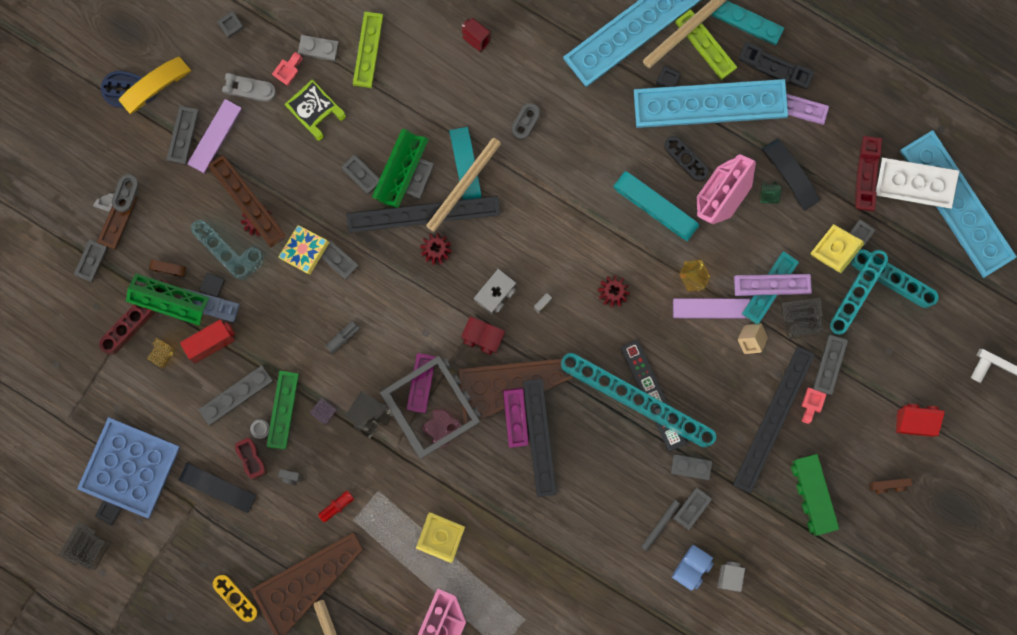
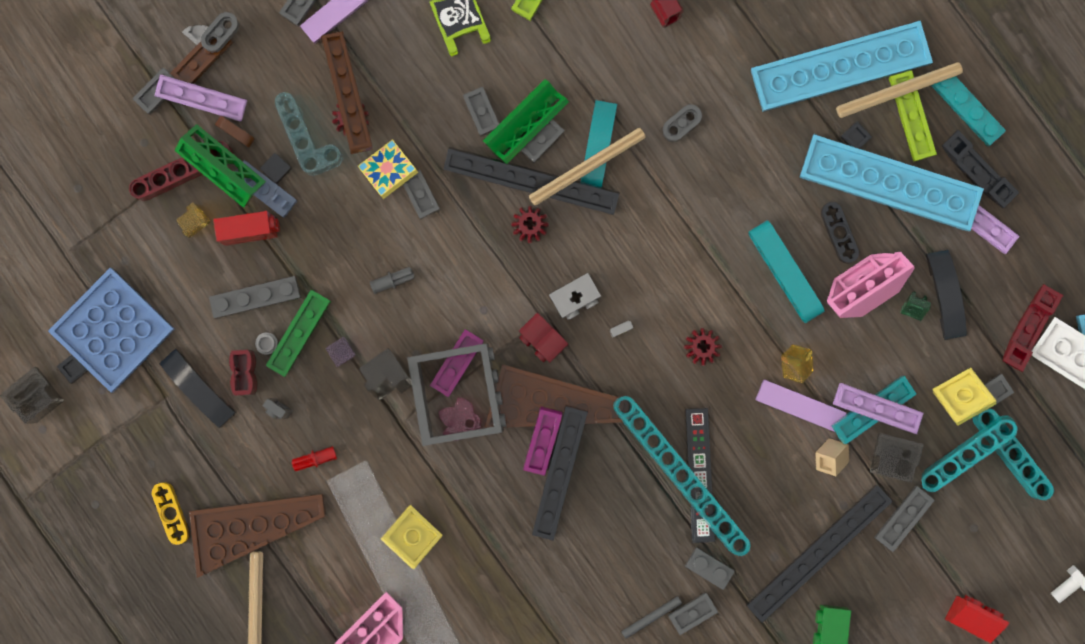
camera: 25 degrees right, 5 degrees up
(129, 252) = (200, 97): none -> lavender tile
(813, 402) = (869, 551): coral plate -> none

